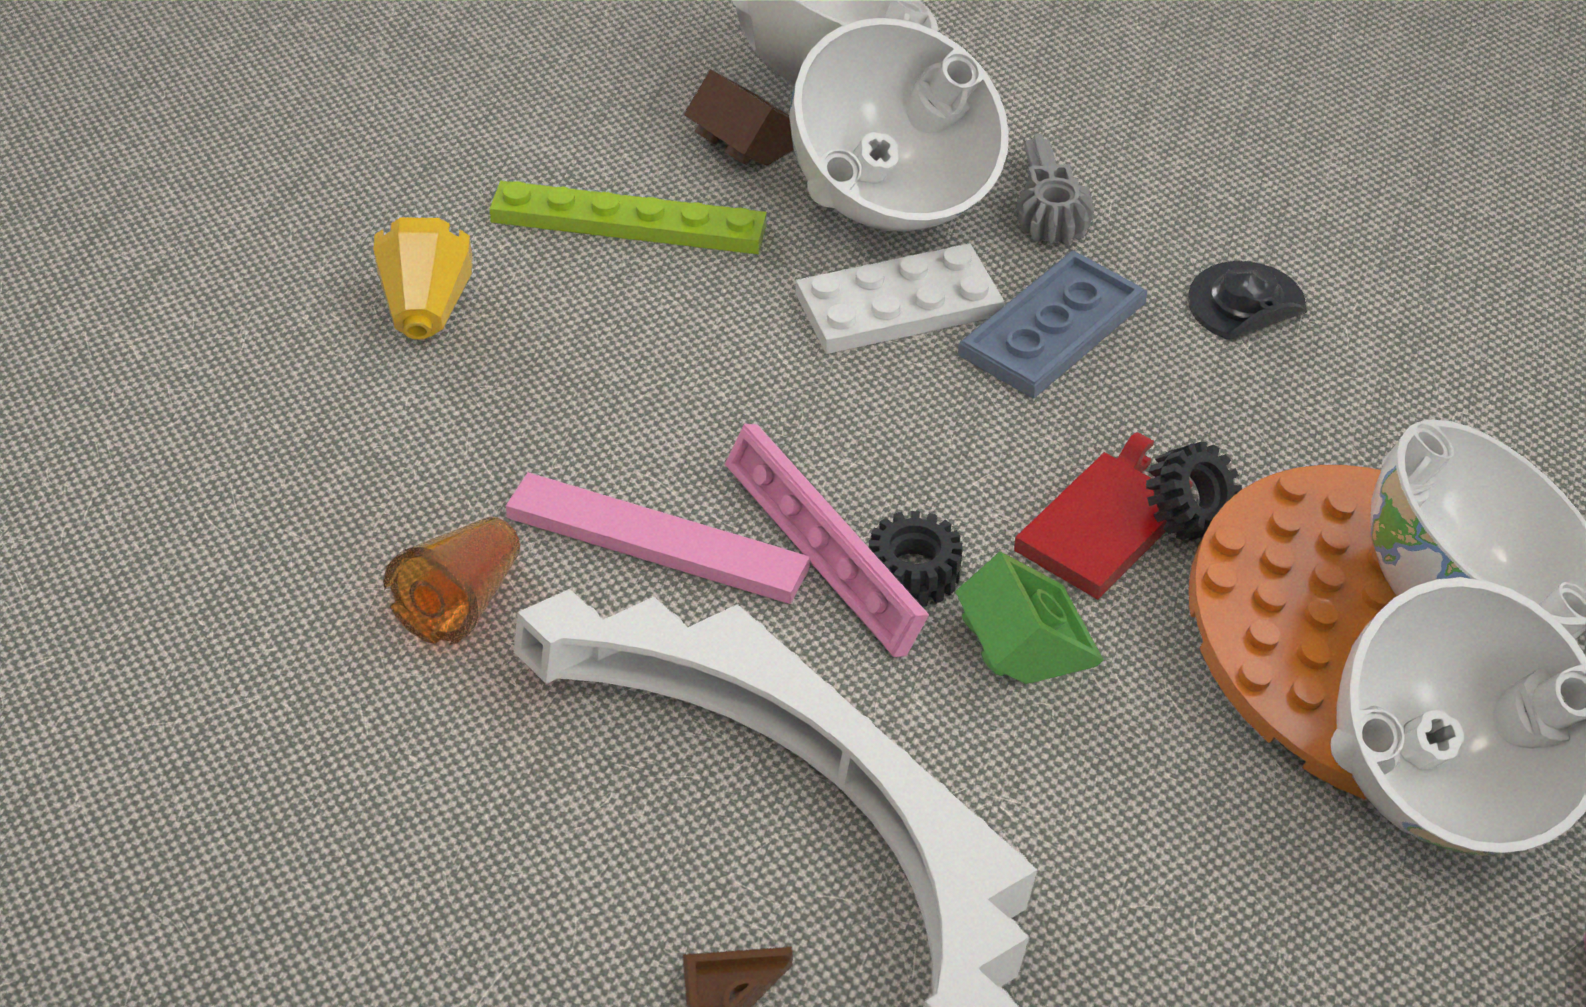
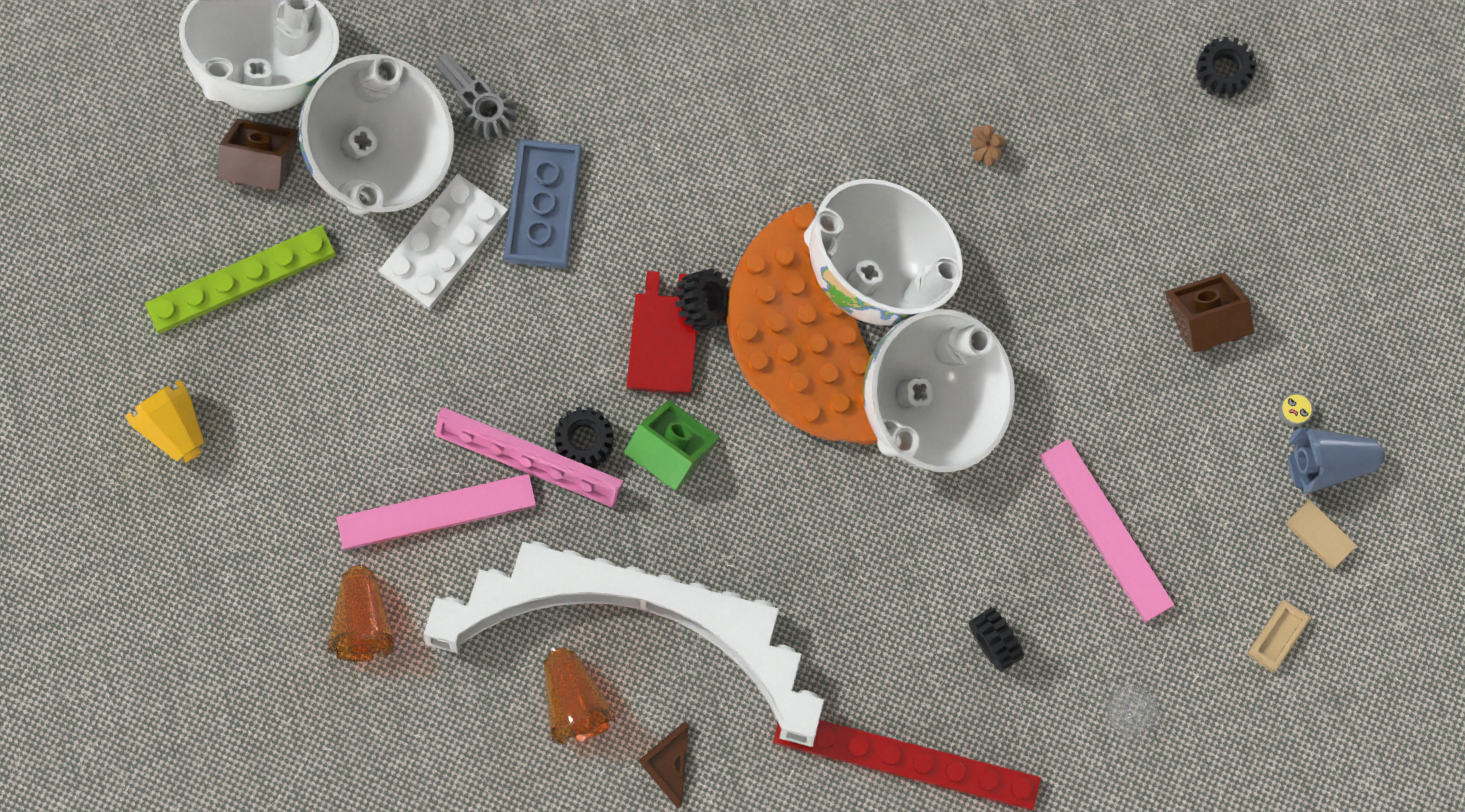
camera: 35 degrees left, 30 degrees up
(649, 826) = (573, 699): none -> clear orange cone
(1243, 297) = (636, 110): black hat -> none

